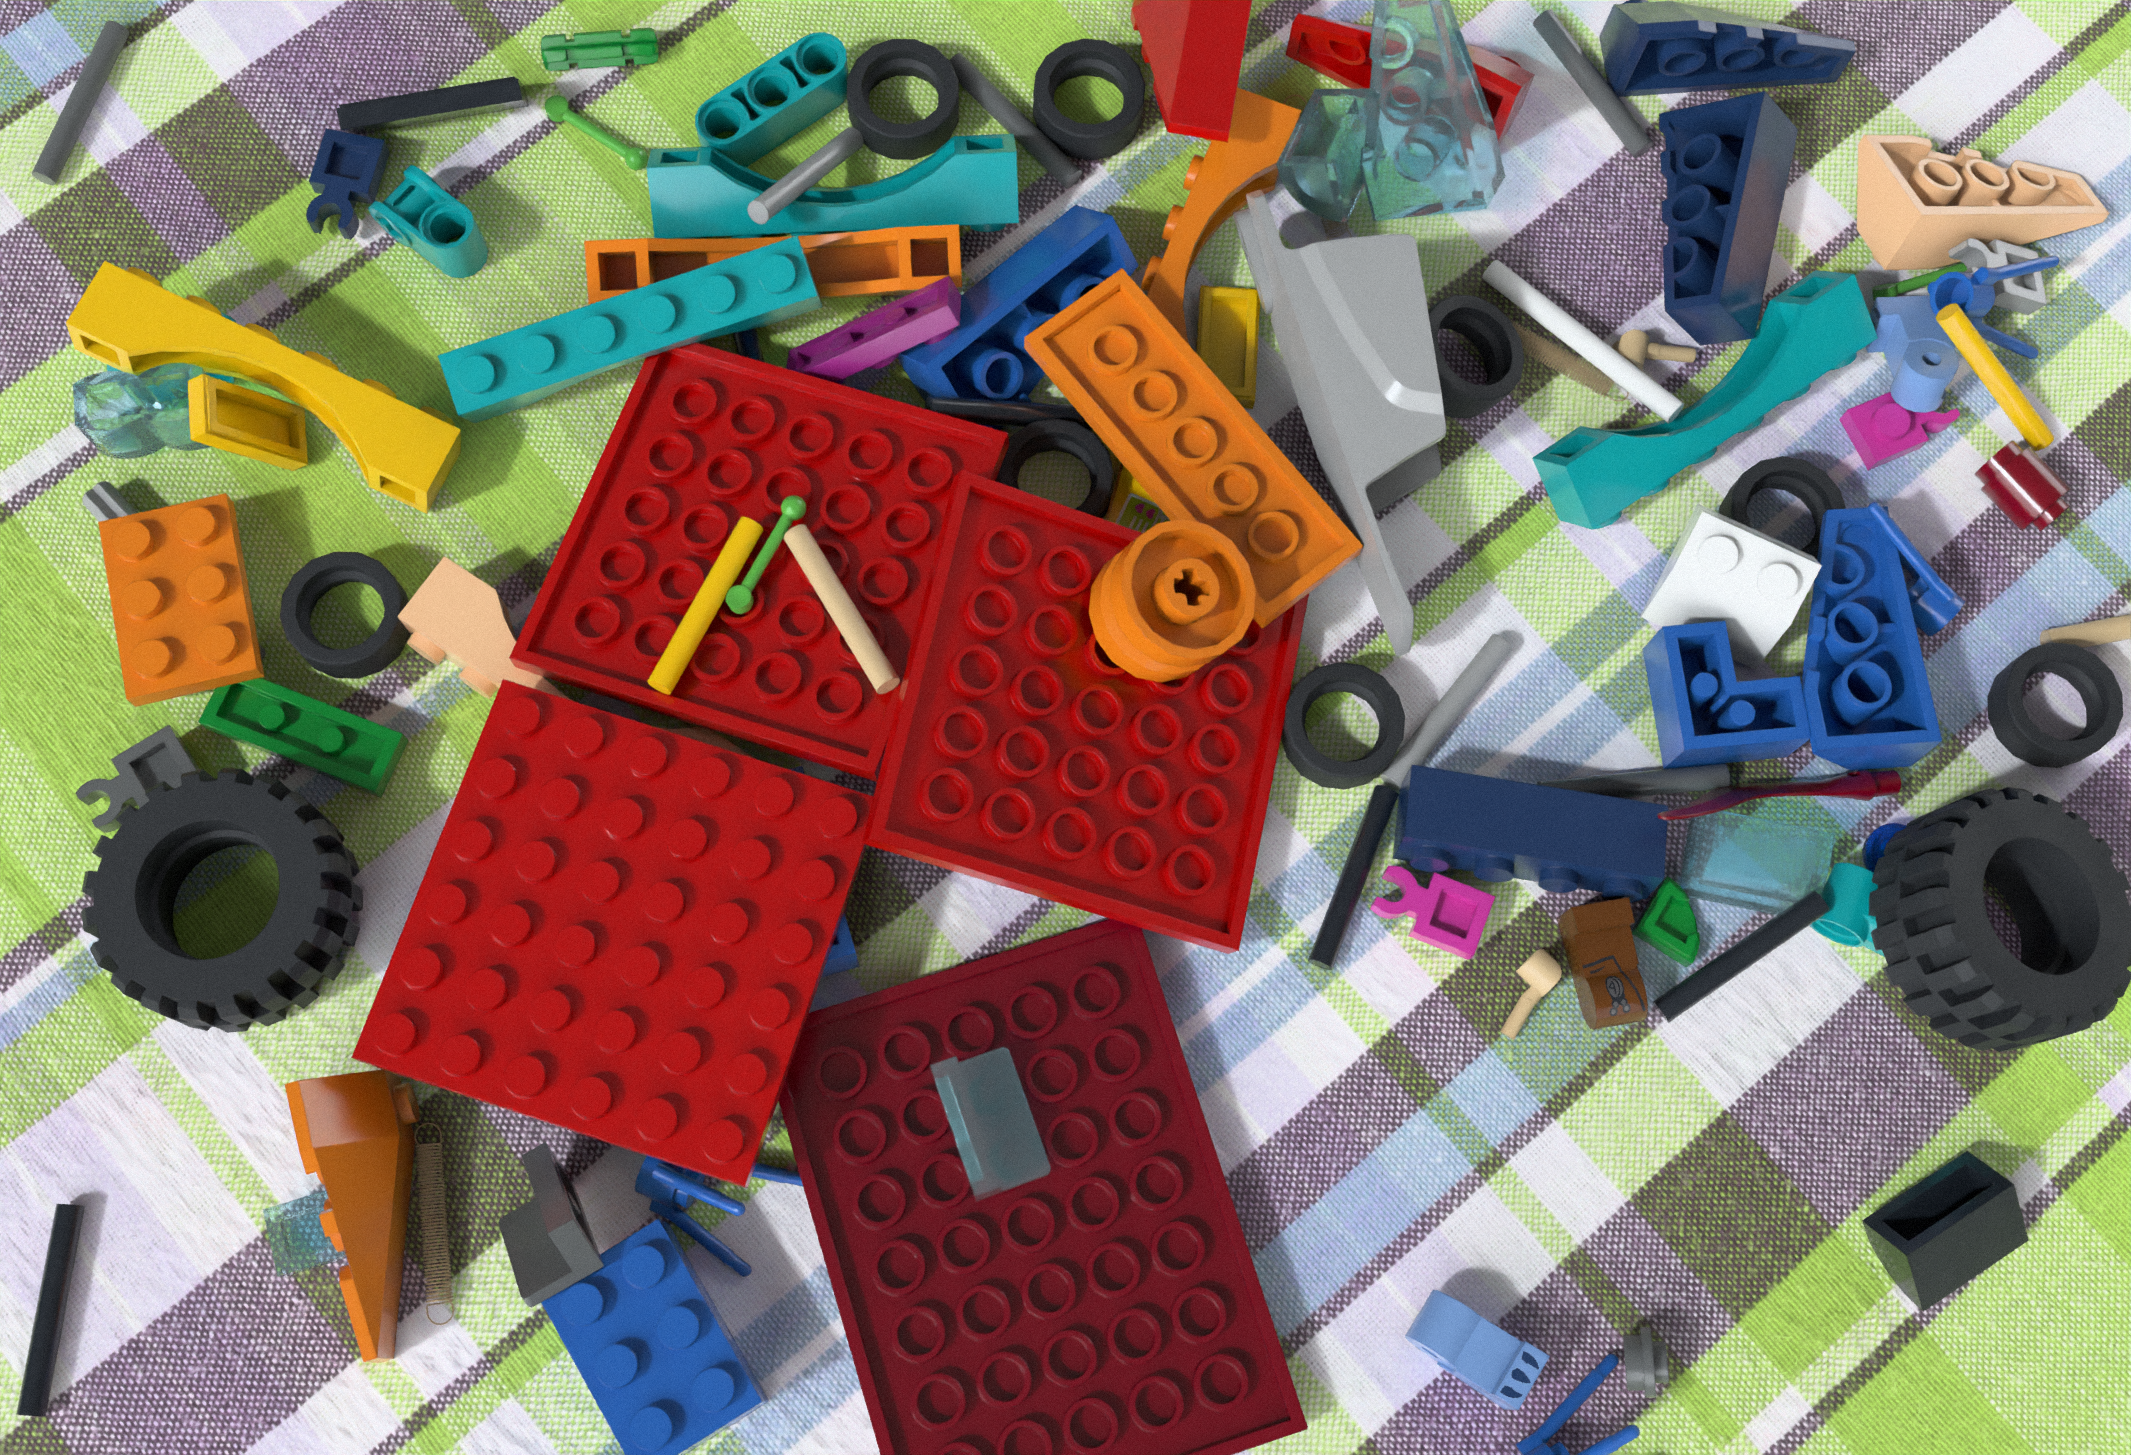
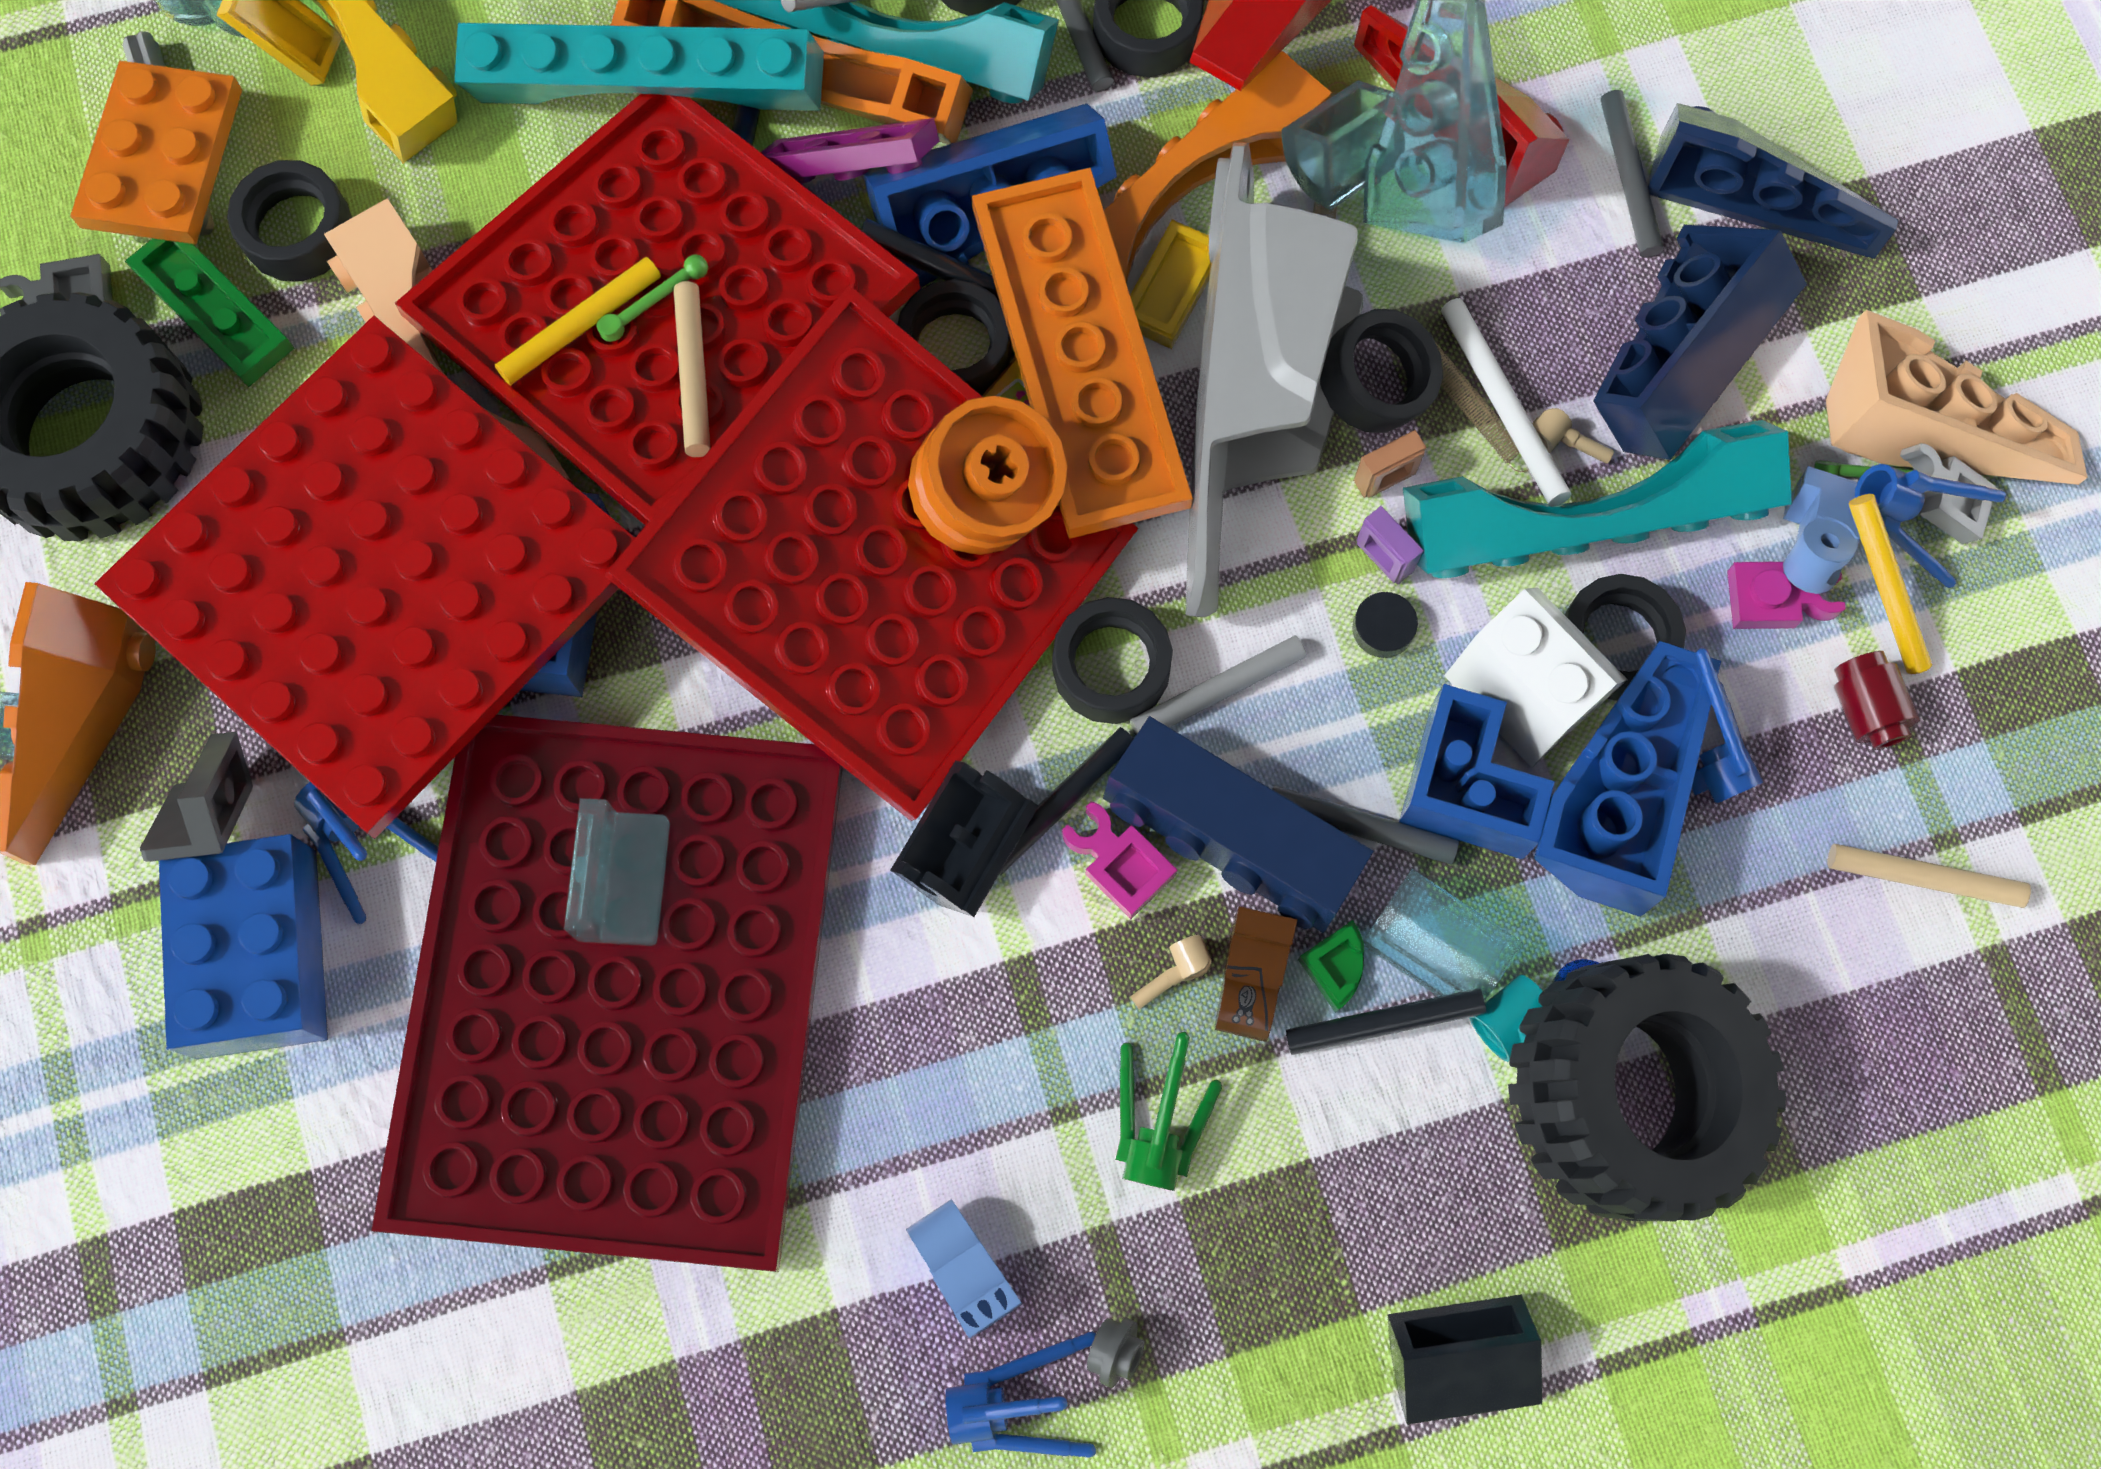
camera: 30 degrees right, 0 degrees up
(423, 1168) = (117, 758): tan piece -> none
(1291, 950) = (964, 838): none -> black hinge
(1508, 440) = (1389, 464): none -> nougat tile
(1542, 516) = (1389, 545): none -> medium lavender tile
(1568, 591) = (1385, 624): none -> black tile
(1595, 1168) = (1155, 1155): none -> green plant
(1854, 785) = (1575, 911): dark red piece -> none
(2086, 674) = (1844, 884): black tyre -> none

